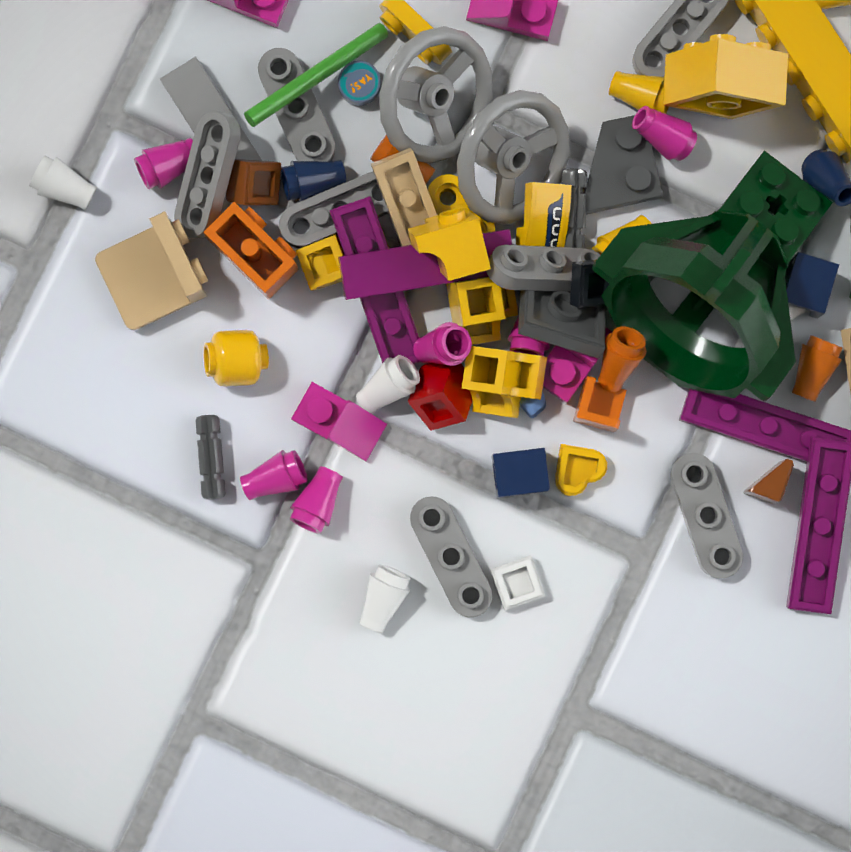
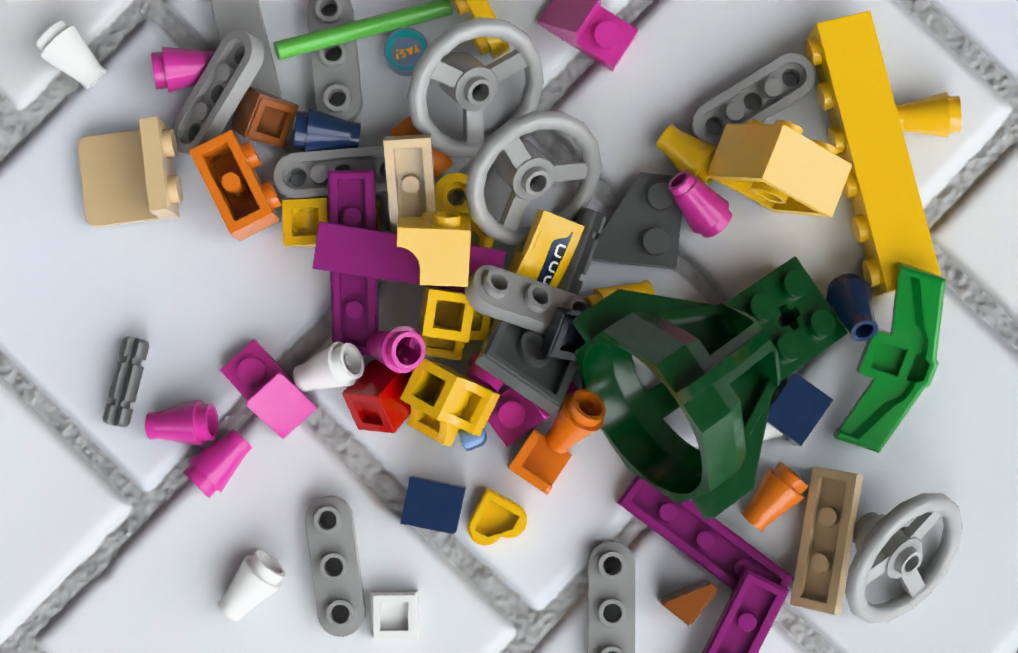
camera: 20 degrees right, 0 degrees up
(235, 358) = (183, 289): yellow head -> none

